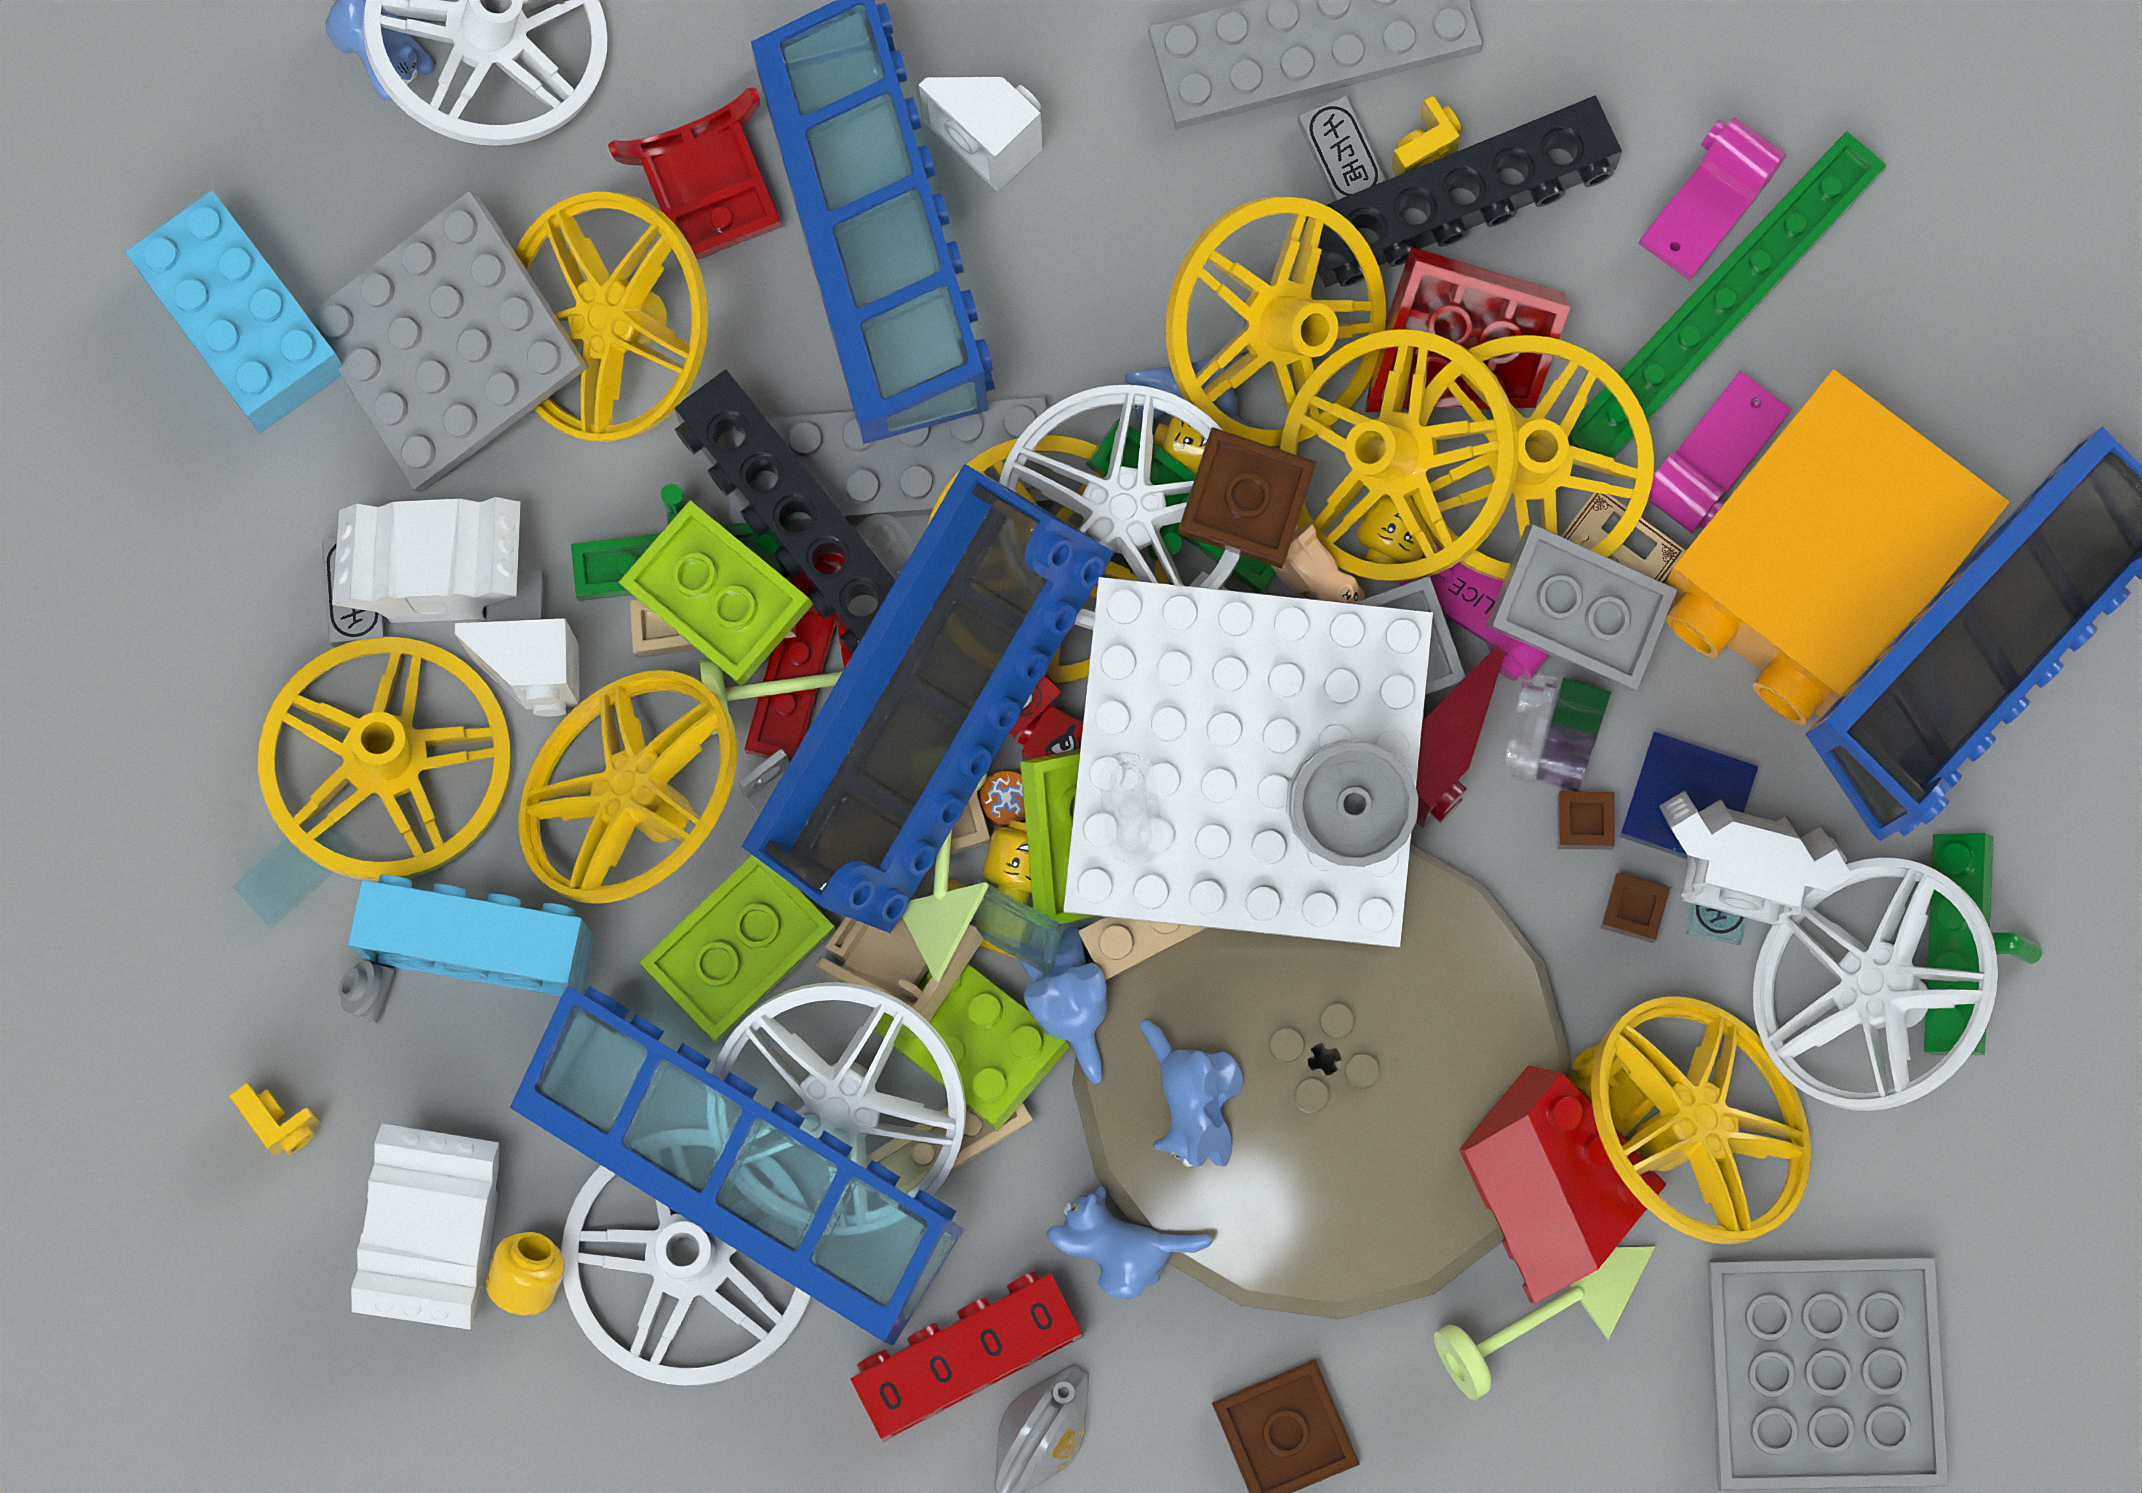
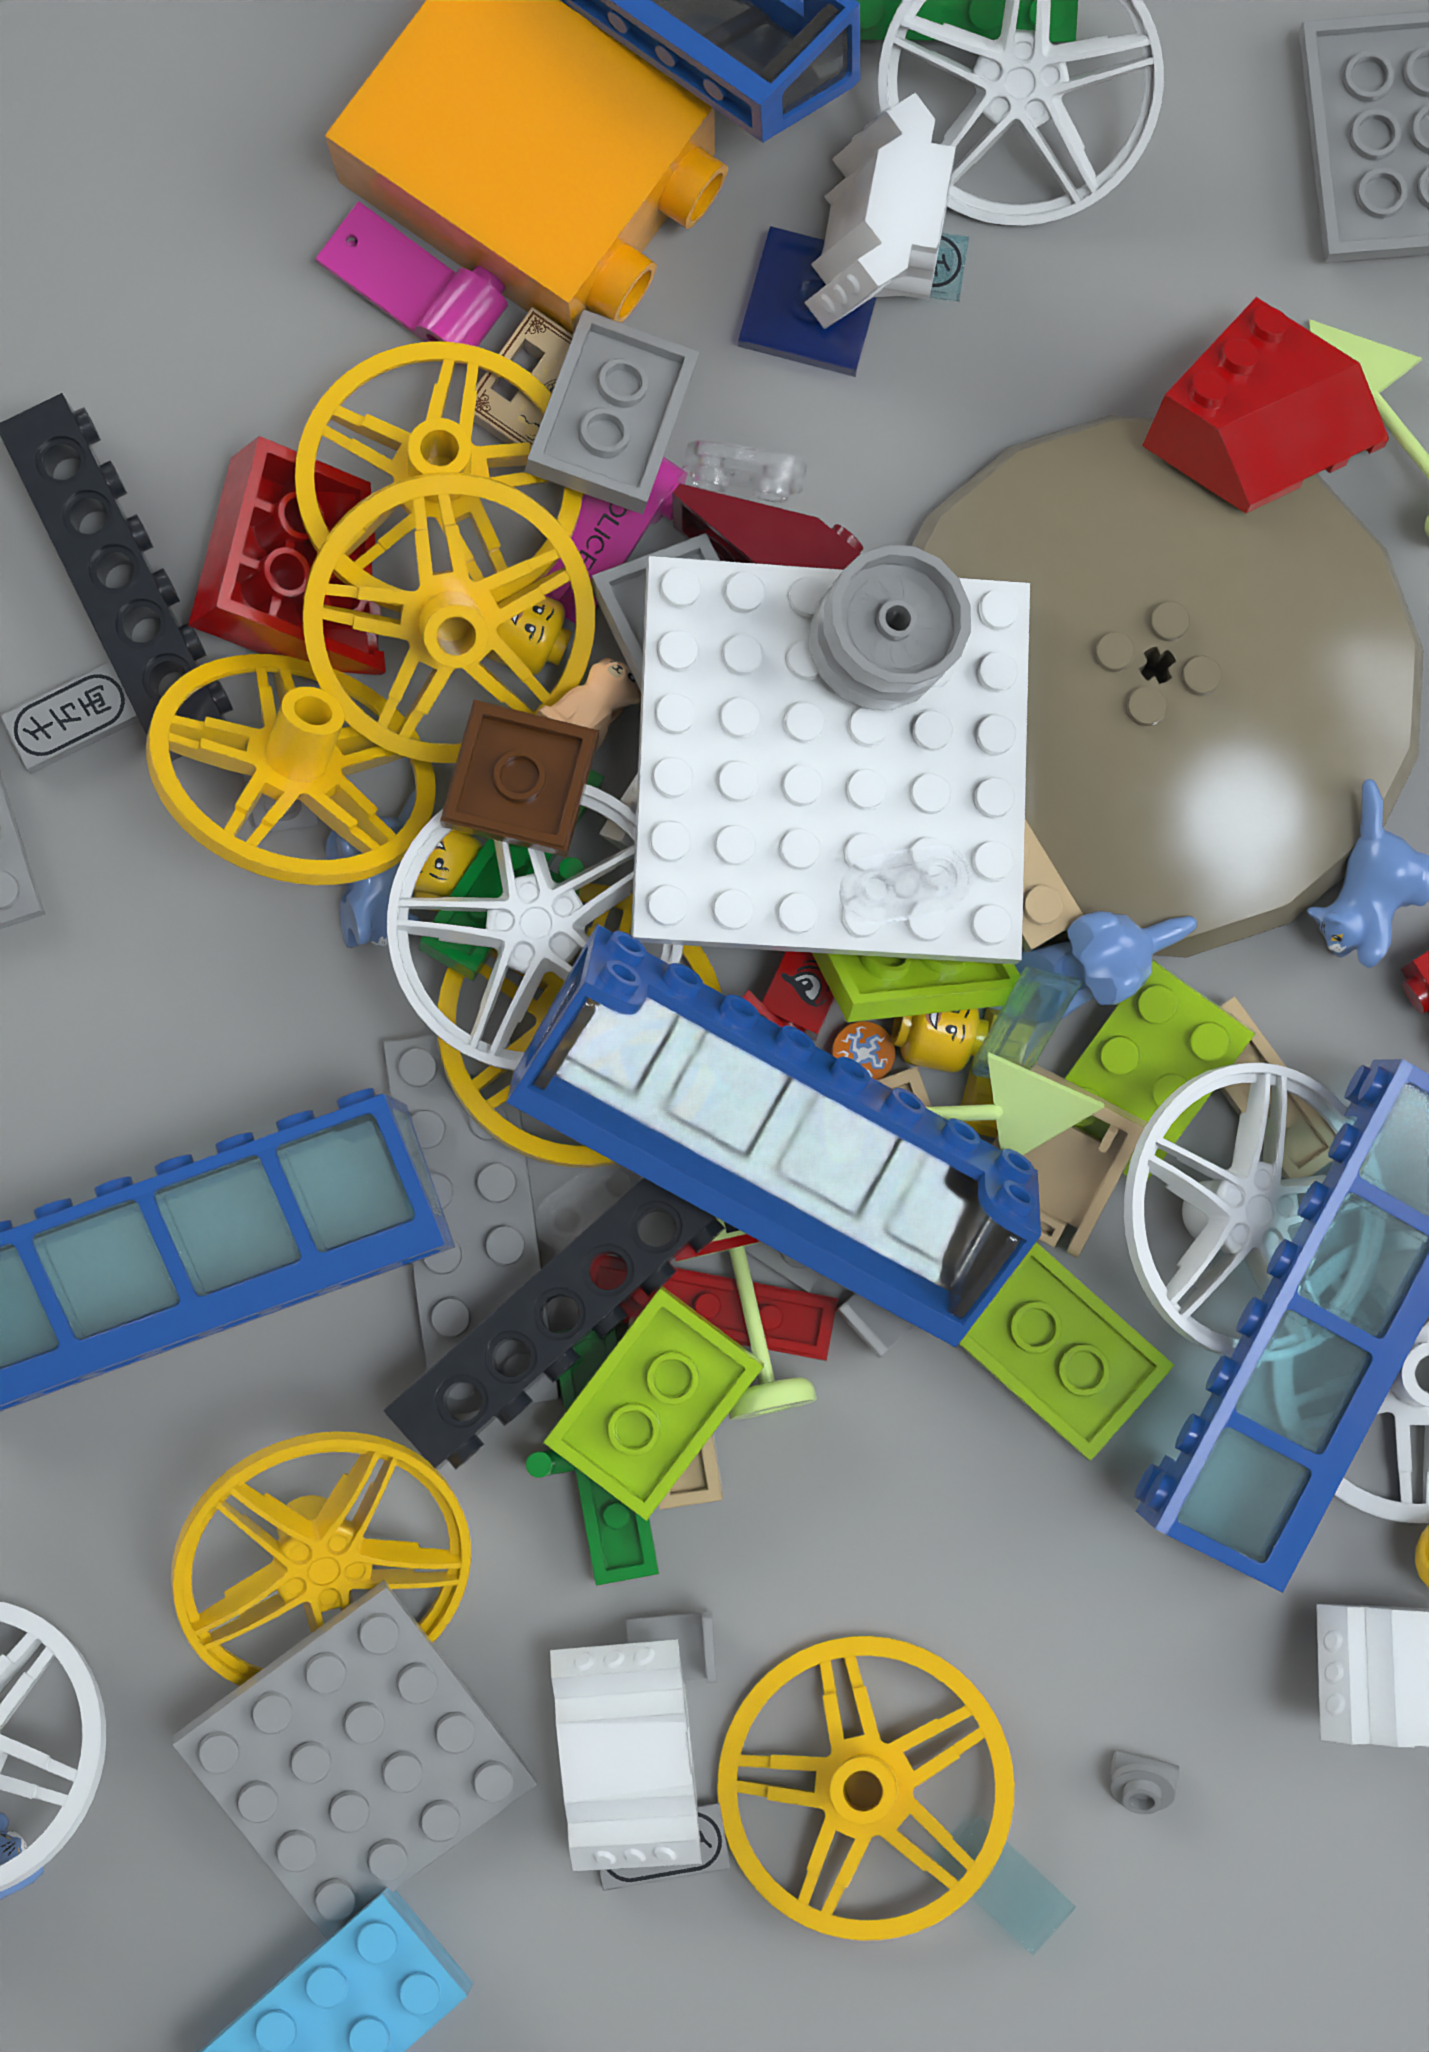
camera: 95 degrees left, 5 degrees up
(263, 1115) = (1307, 1887): yellow bracket -> none
(470, 937) = (1085, 1659): medium azure brick -> none
(528, 660) = (750, 1621): white slope -> none
(630, 790) = (899, 1483): yellow wheel -> none
(707, 177) = (132, 1462): red piece -> none
(984, 123) = (55, 1129): white slope -> none
(1195, 1090) = (1206, 803): medium blue animal -> none
(1424, 147) = (65, 623): yellow bracket -> none
(1571, 734) = (750, 421): leg -> none
(1585, 820) = (845, 408): reddish brown plate -> none
(1626, 1100) = (1141, 367): yellow bracket -> none
(1635, 907) = (940, 351): reddish brown plate -> none
(1698, 1123) = (1190, 265): yellow wheel -> none
(1714, 197) = (90, 287): dark pink door -> none
(1731, 293) = (217, 268): green plate -> none

